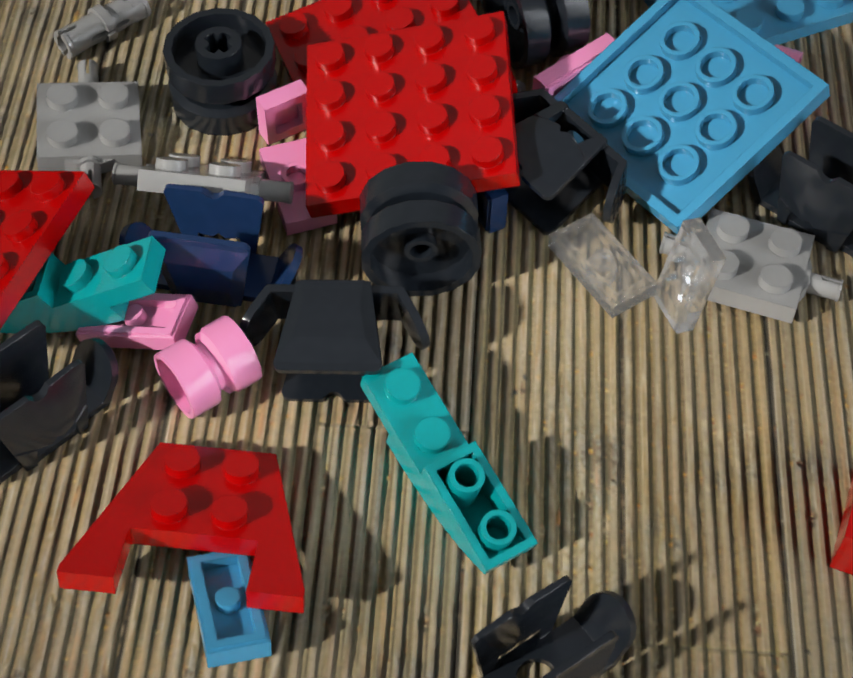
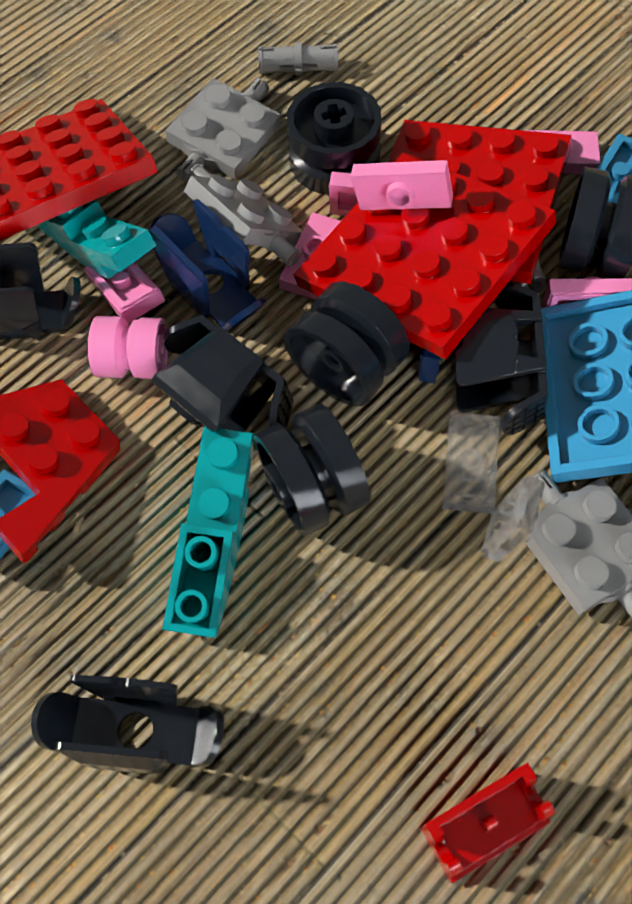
camera: 45 degrees right, 10 degrees up
(355, 63) = (402, 185): none -> bright pink plate
(492, 346) = (312, 469): none -> black wheel

